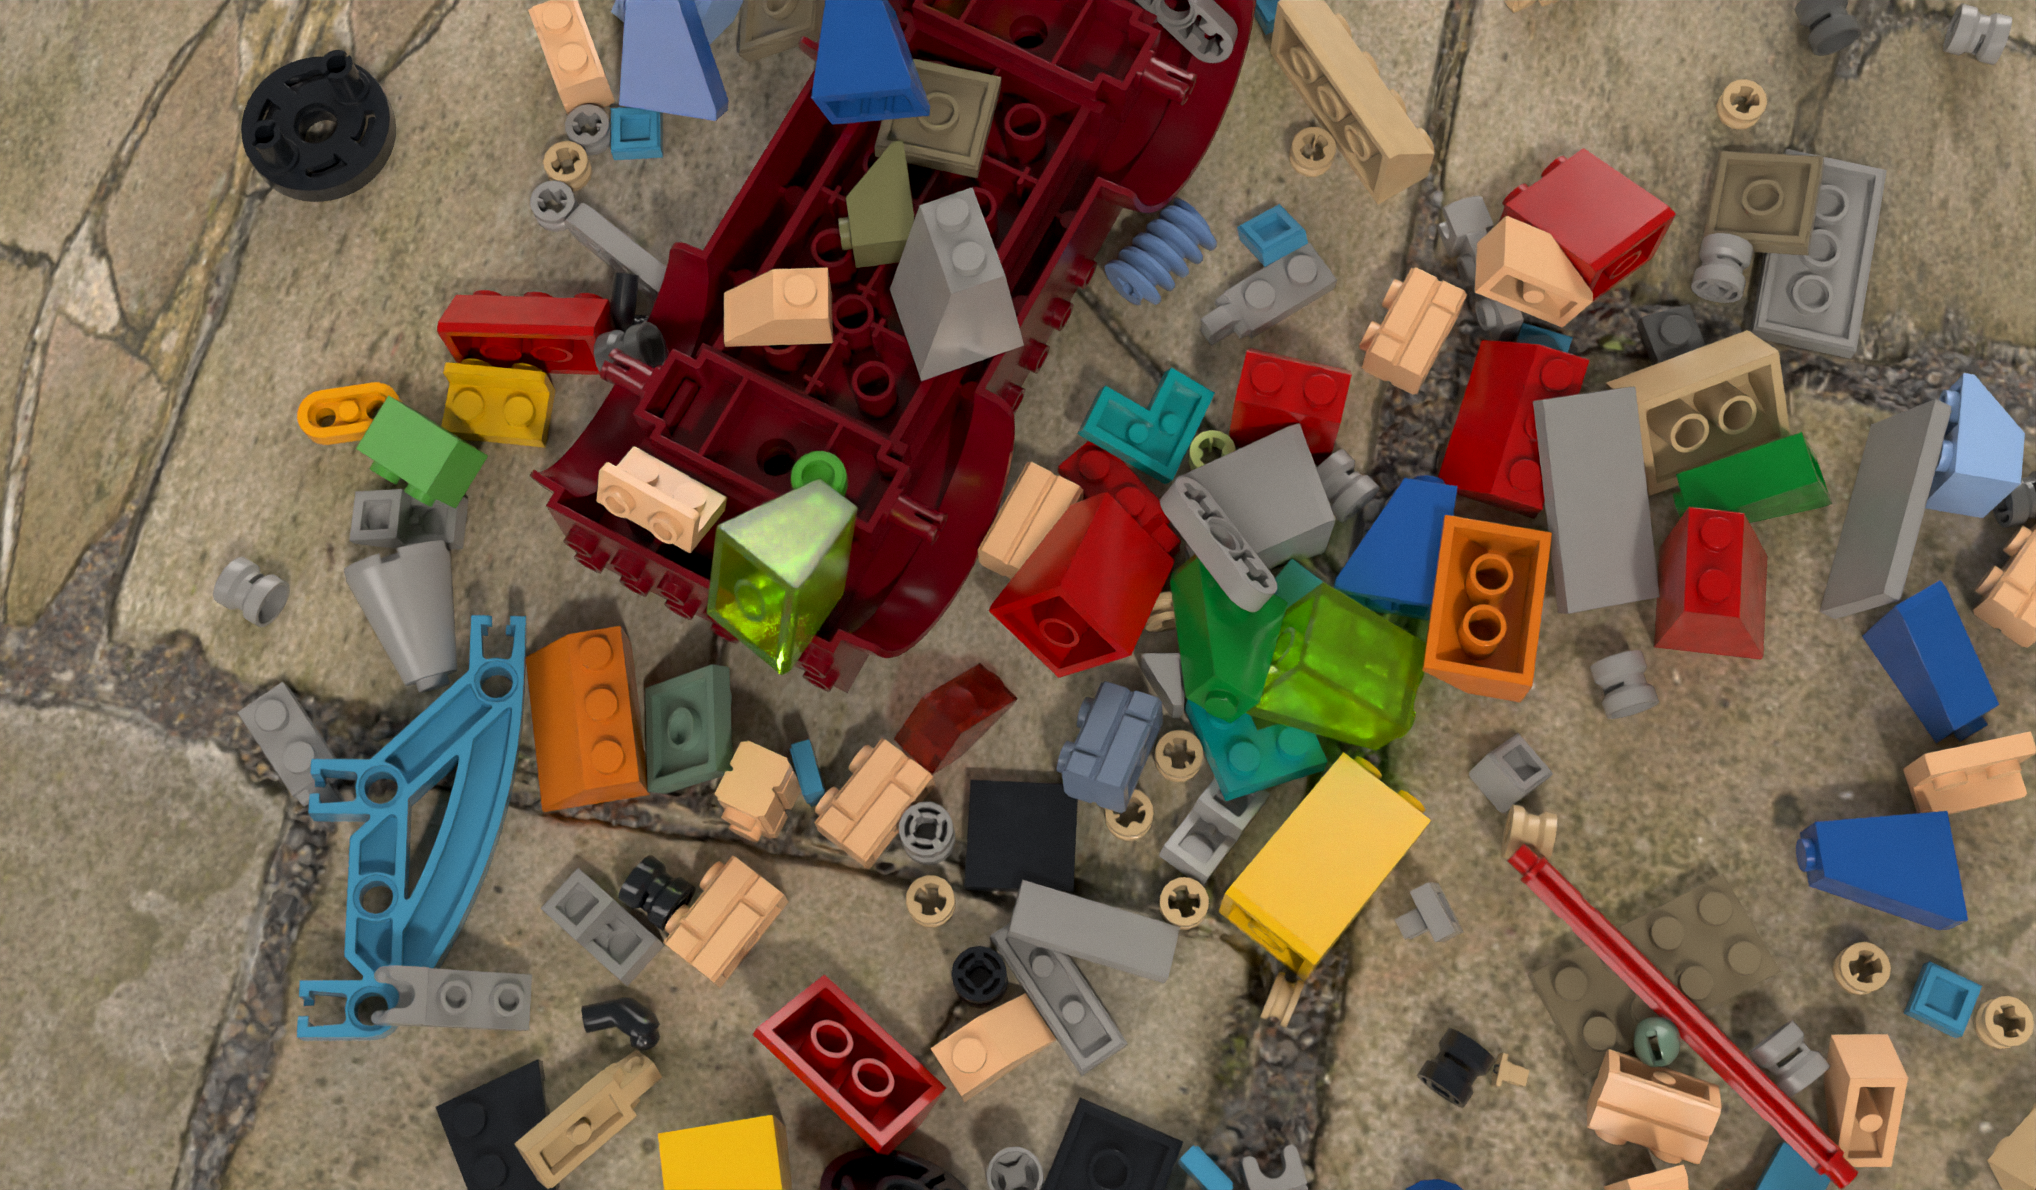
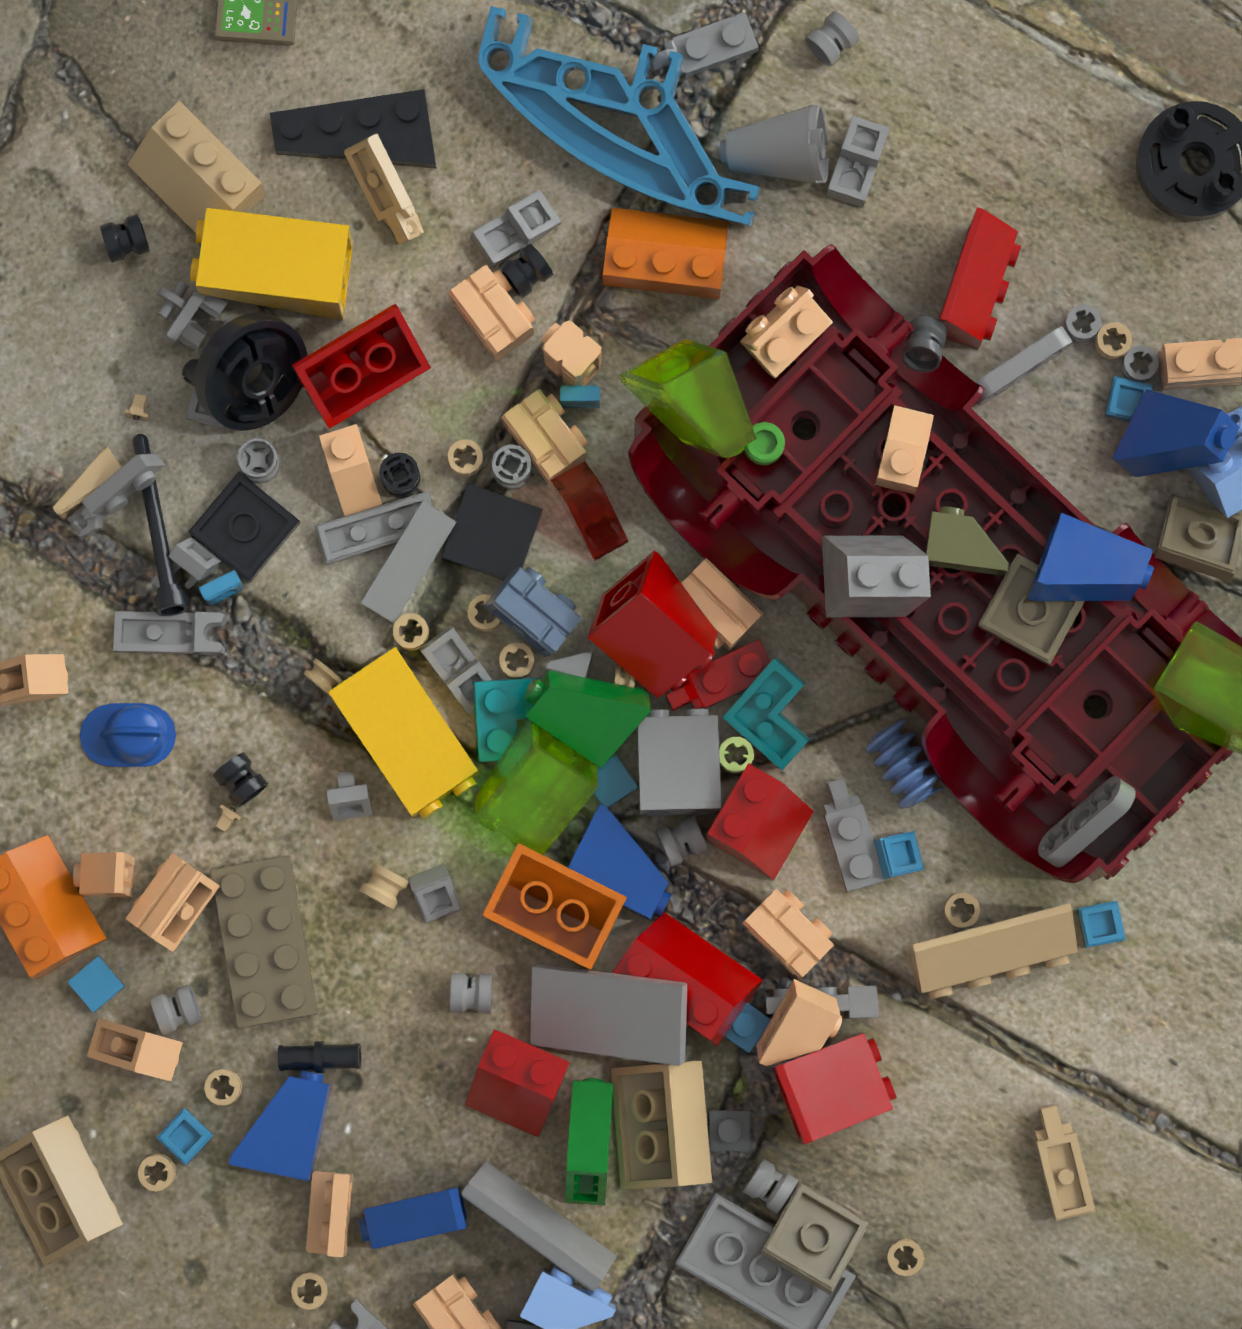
camera: 100 degrees right, 10 degrees up
(350, 405) = (952, 138): light orange plate -> none
(420, 453) = (899, 179): bright green brick -> none
(456, 998) = (488, 117): light grey plate -> none
(498, 403) = (928, 243): yellow bracket -> none
(624, 301) = (976, 352): black arm -> none
(627, 1016) = (447, 231): black arm -> none
(688, 729) = (633, 319): sand green plate -> none
(1218, 544) = (679, 726): light grey beam -> none
(1668, 1041) = (209, 922): sand green hinge -> none
(1692, 1024) = (227, 941): red piece -> none
(1776, 853) = (319, 1057): none -> black pin

